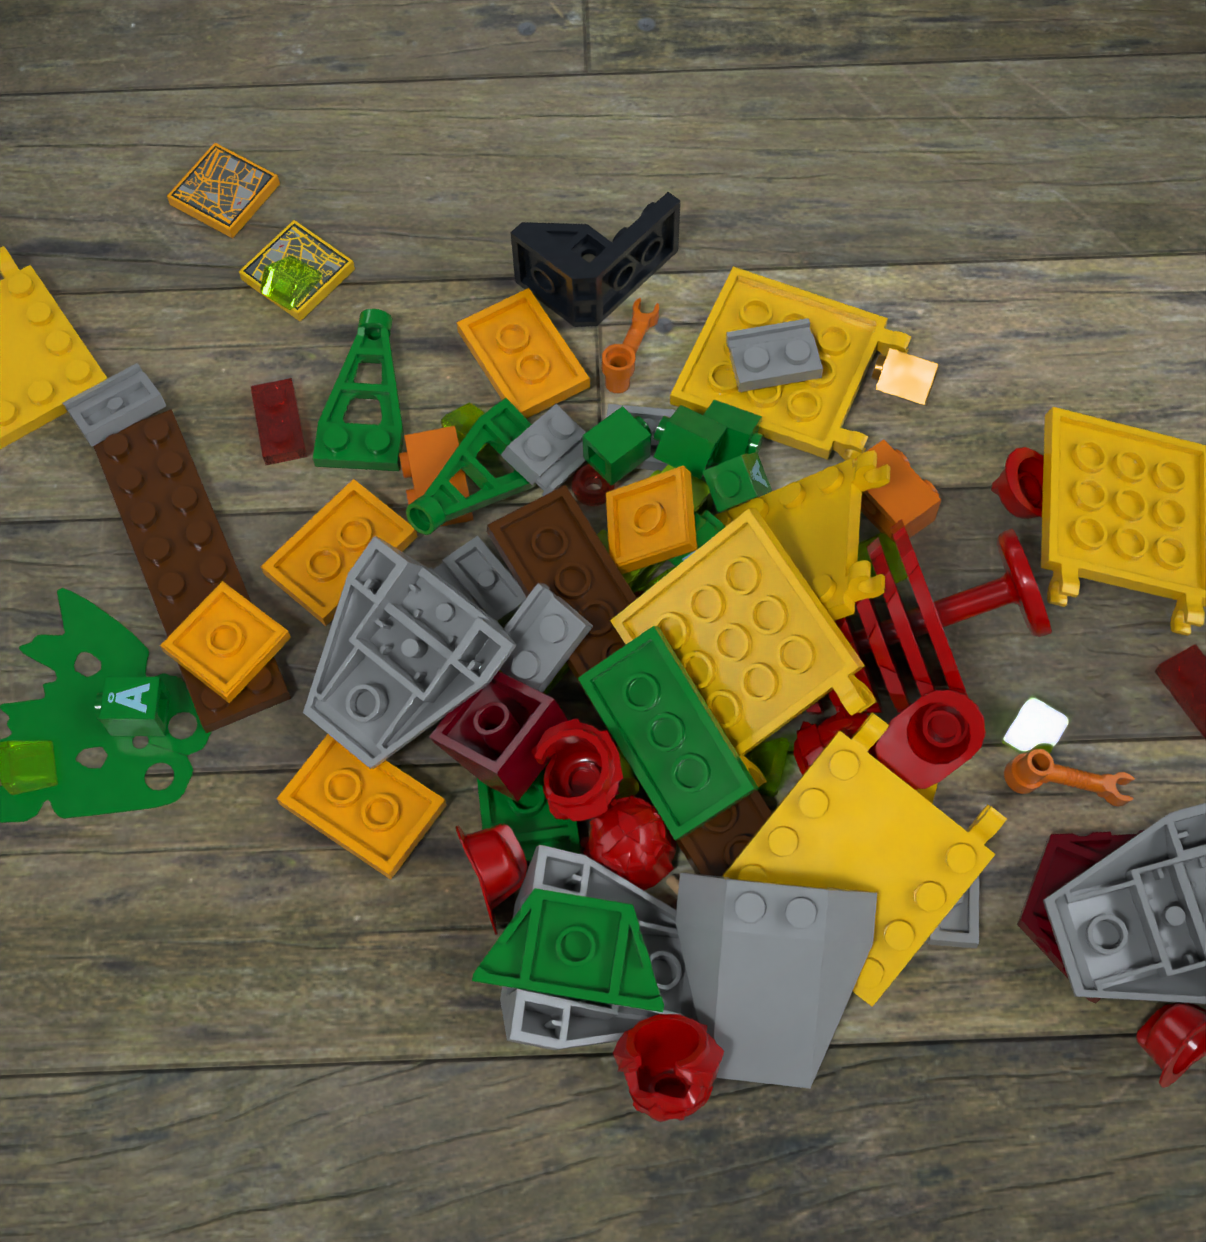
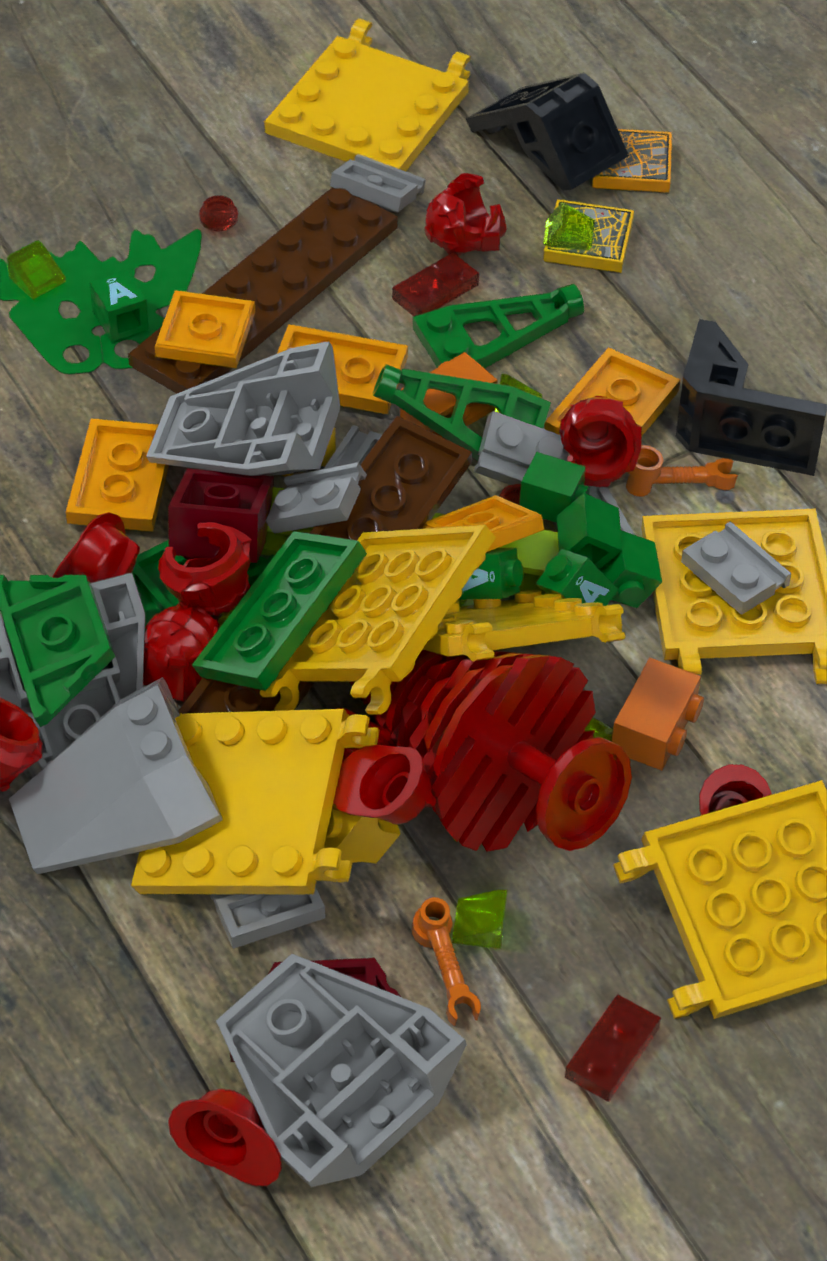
camera: 60 degrees right, 15 degrees down
(55, 552) = (218, 213): none -> clear red plate
(157, 215) = (560, 127): none -> black bracket
(223, 361) = (460, 221): none -> red helmet
(588, 379) = (601, 438): none -> red helmet
(905, 376) = (791, 677): brick -> none

